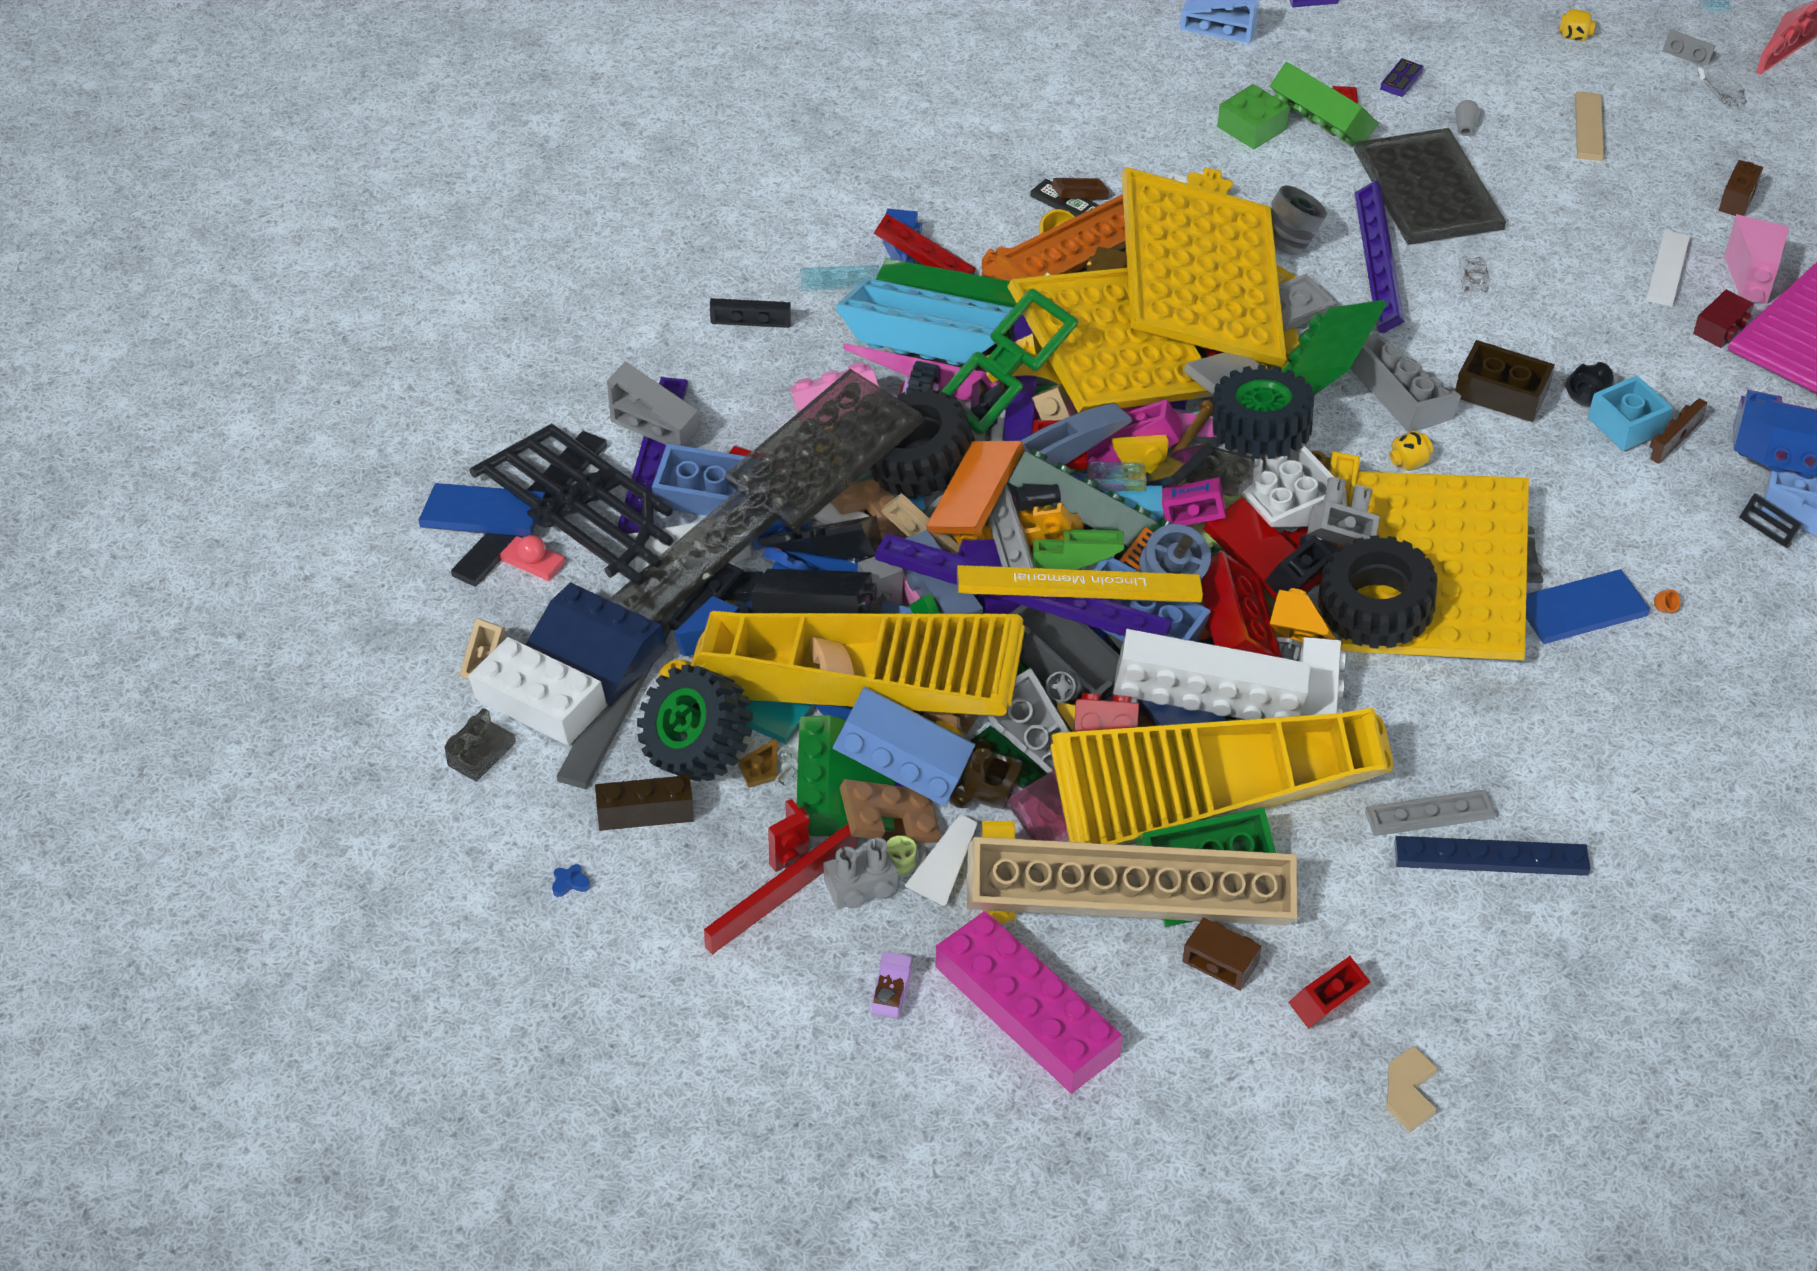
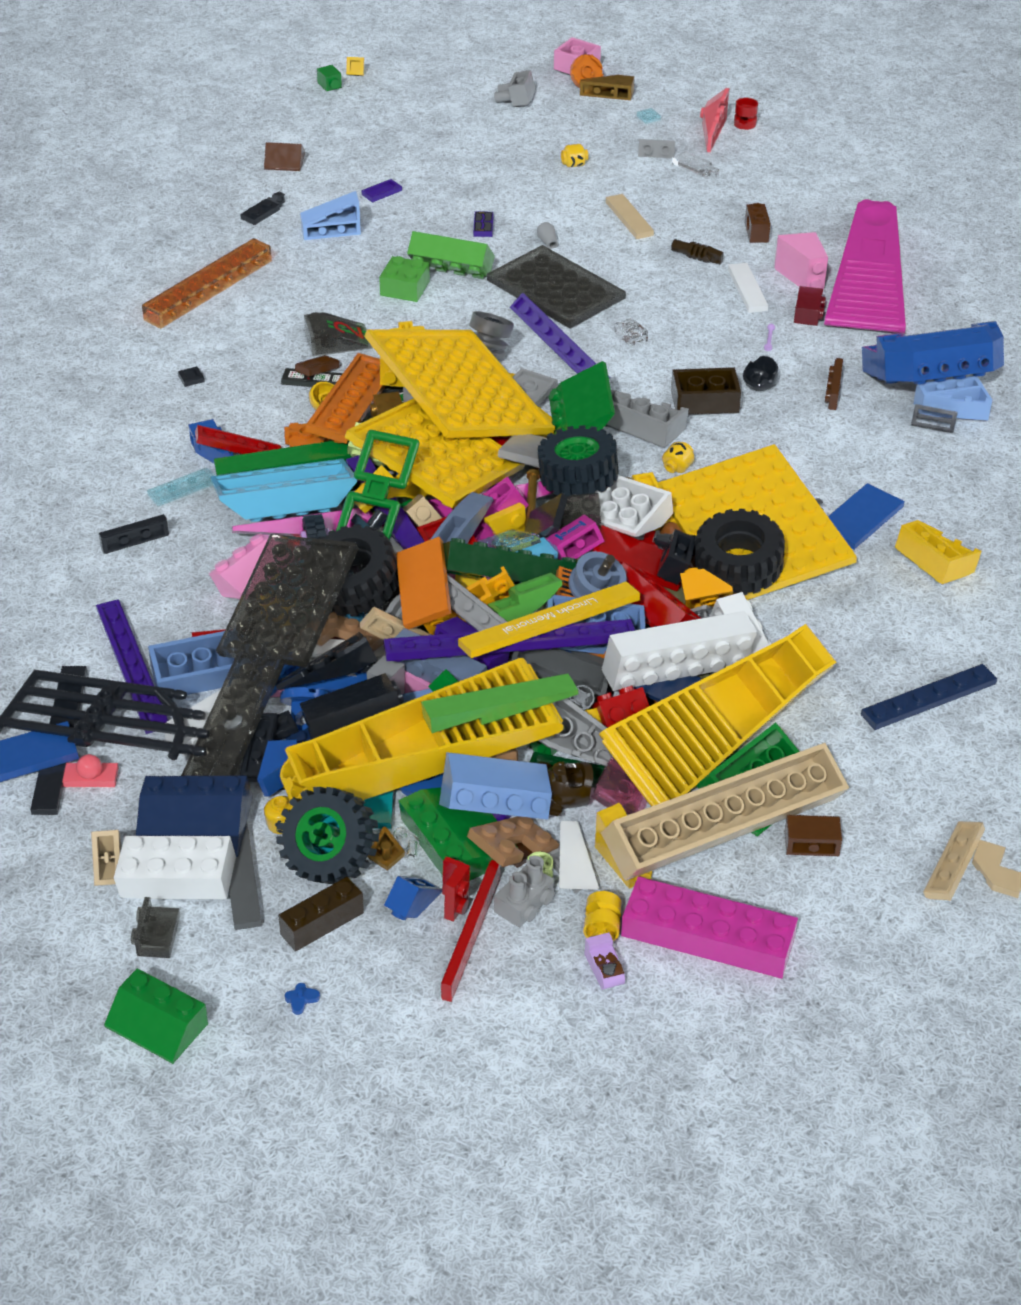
camera: 30 degrees left, 5 degrees down
(419, 834) = (156, 1016): none -> green slope
(650, 408) = (112, 627): light grey wedge -> none
(744, 824) = (411, 896): none -> blue slope
(831, 656) = (396, 744): light nougat slope -> none
(920, 939) = (602, 914): none -> yellow wheel
(938, 152) = (191, 376): none -> black tile
(947, 653) = (496, 702): none -> bright green slope
(1030, 46) = (206, 283): none -> clear orange brick
(1036, 496) = (473, 572): black cone -> none
(1121, 148) = (334, 334): none -> clear smoke slope
(1329, 992) = (904, 828): red brick -> none
(1339, 522) = (682, 515): light grey brick -> none
(1365, 1055) = (954, 860): none -> tan tile
(1430, 812) = (869, 685): light grey tile -> none
(1629, 412) = (799, 382): medium azure brick -> none
(1632, 689) = (935, 553): none -> yellow wedge
(1635, 353) = (768, 347): none -> lavender hinge
(1638, 200) = (699, 251): none -> dark brown hinge
(1667, 601) = (910, 492): orange hinge -> none

